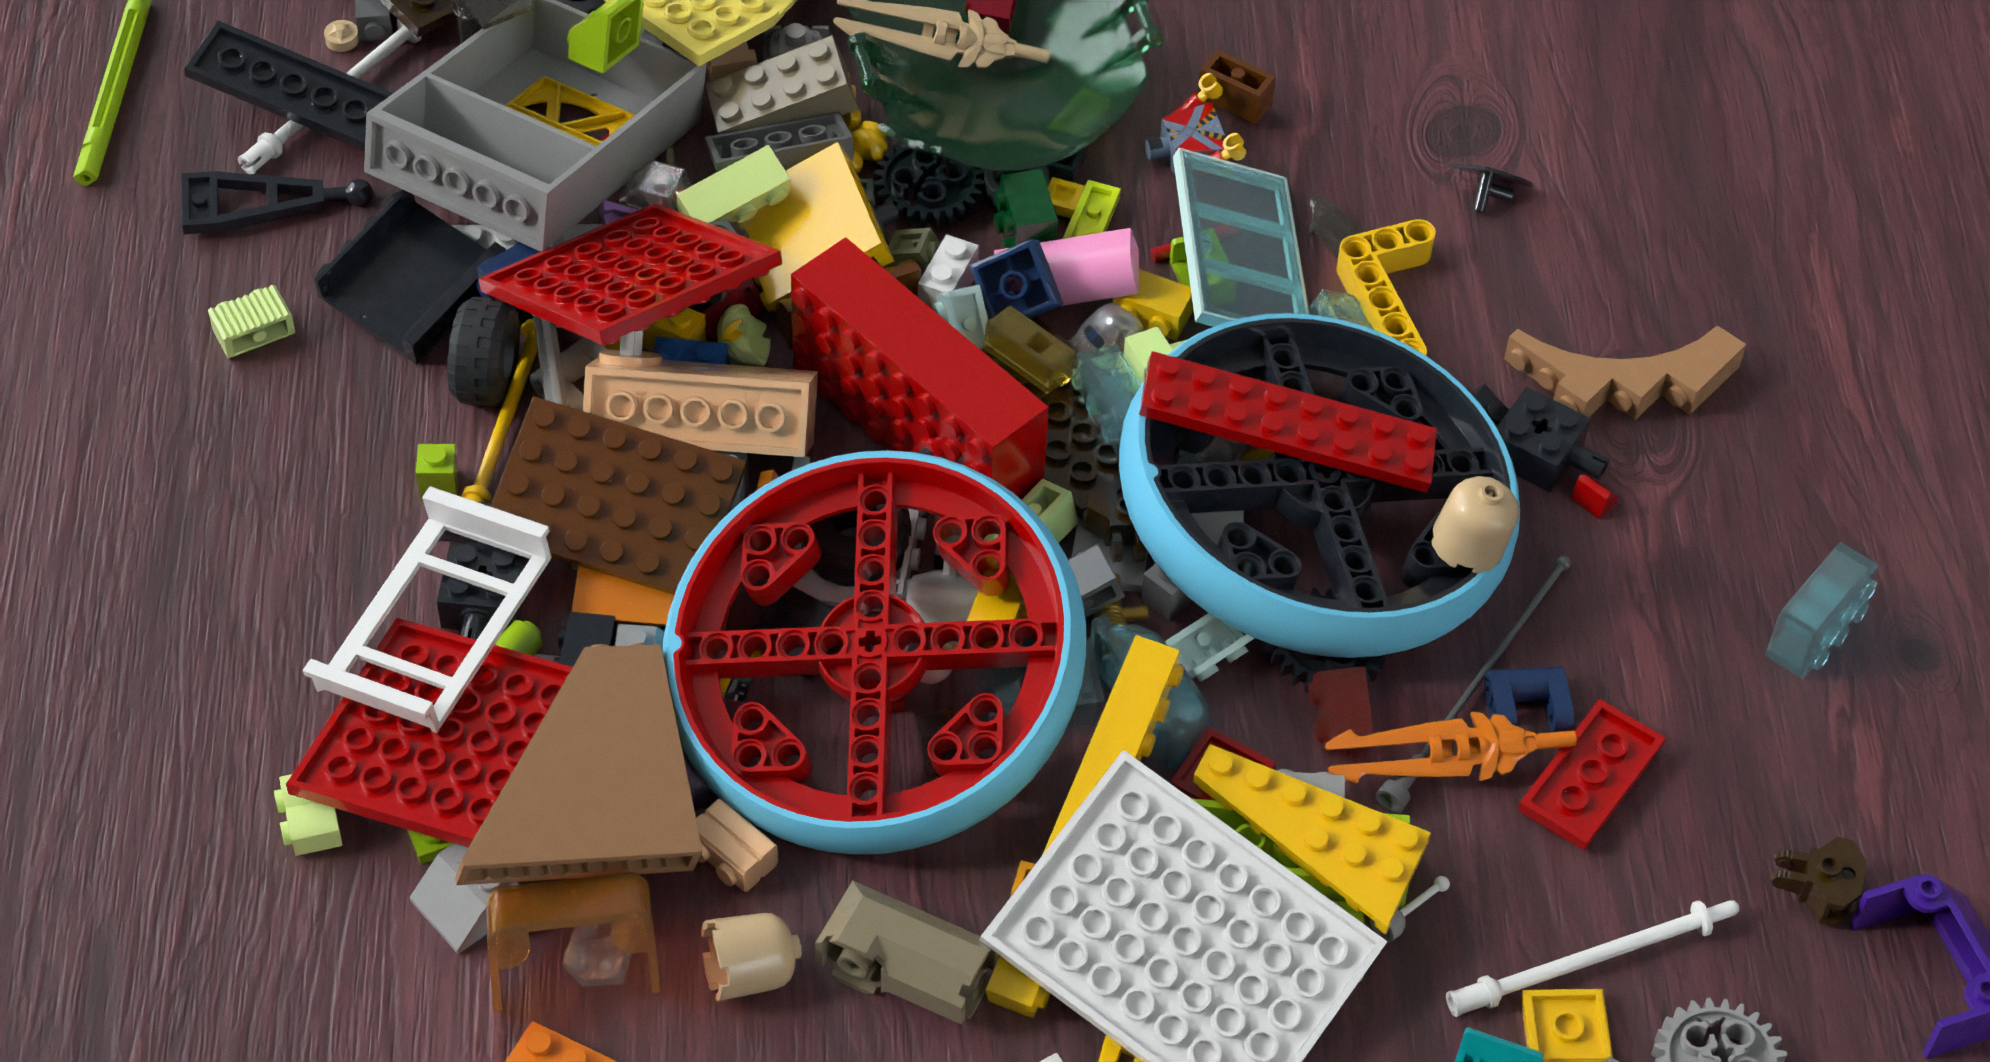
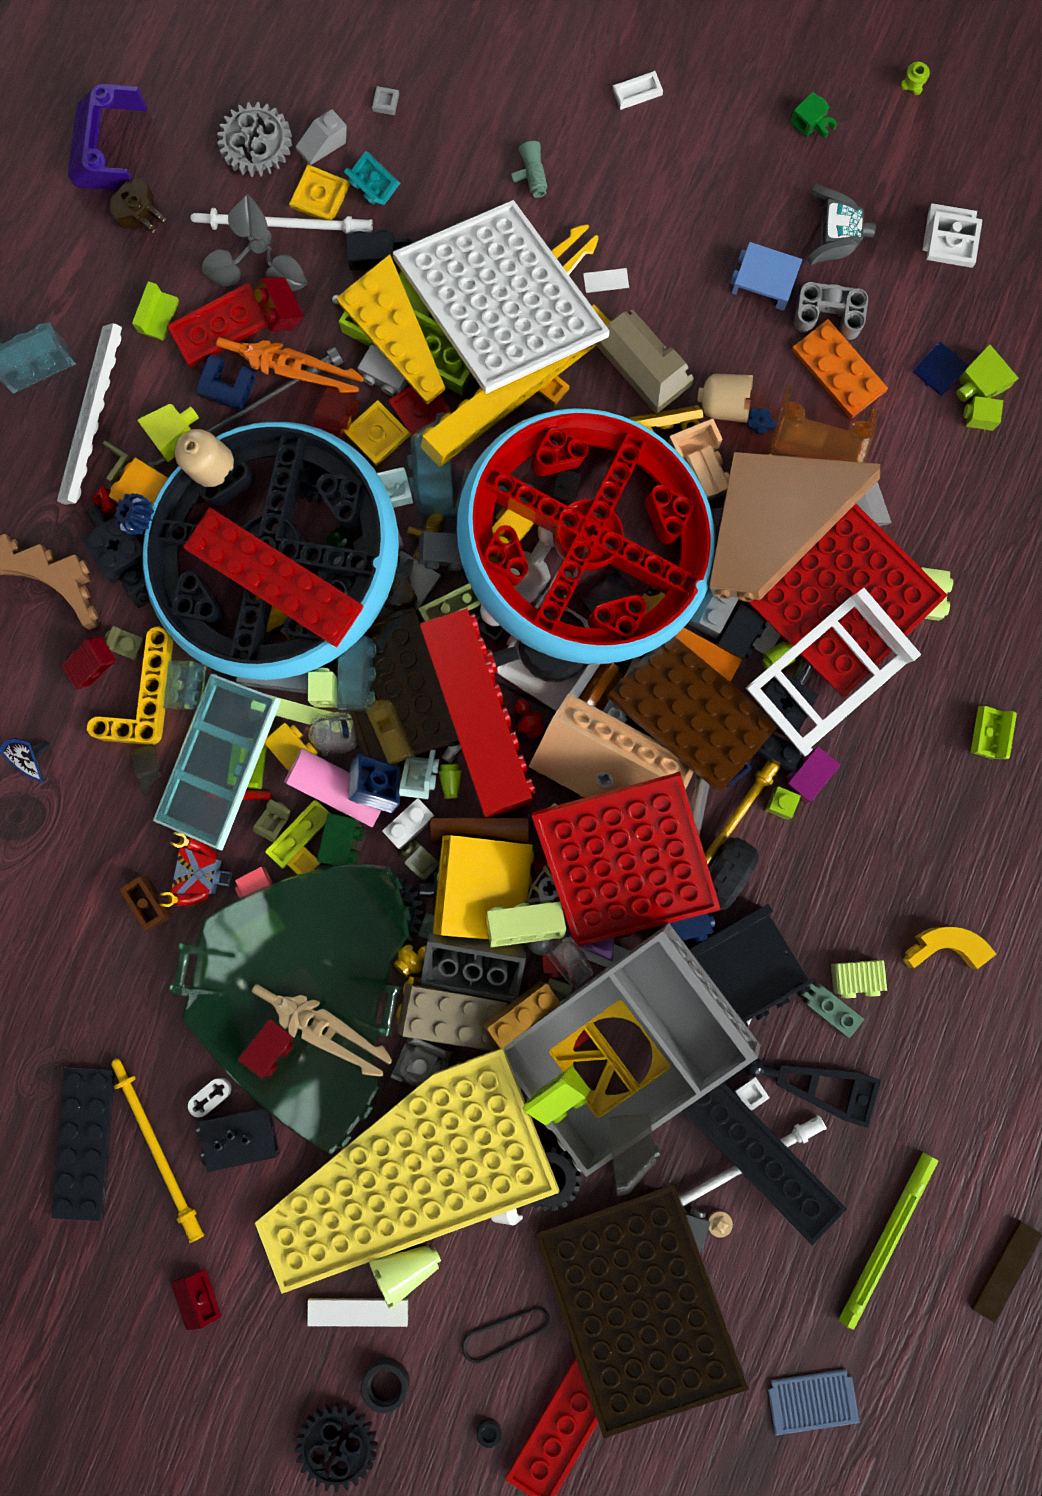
camera: 150 degrees left, 30 degrees up
(132, 404) = (968, 945): none -> yellow arch
(150, 664) = (993, 733): none -> lime bracket
(293, 285) = (833, 1010): none -> sand green hinge
(348, 162) = (752, 1093): none -> white plate
(400, 519) = (811, 774): none -> magenta brick
(681, 966) = (760, 421): none -> blue plant
(693, 110) = (520, 1014): none -> pearl gold brick
(778, 882) = (696, 438): none -> light nougat panel
(812, 911) = (668, 418): none -> yellow plate
(842, 439) = (530, 722): none -> red animal
(1112, 155) = (253, 881): none -> coral brick
(1133, 215) = (272, 820): none -> olive bracket
(1267, 718) = (377, 433): none -> yellow plate
(1423, 968) = (369, 249): none -> black brick
(1455, 347) = (124, 643): none -> olive bracket
(1481, 292) = (88, 662): none -> dark red brick
(1521, 823) = (278, 304): none -> dark red brick
(1532, 451) = (133, 514): none -> dark blue gear
(1553, 515) = (138, 479): none -> light orange brick
(1566, 602) = (166, 427): none -> neon yellow torso
(1606, 547) = (117, 471): none -> olive bracket
(1608, 900) = (249, 221): none -> dark grey plant
(1698, 598) = (91, 407): none -> white plate
(1698, 757) = (155, 312): none -> lime panel

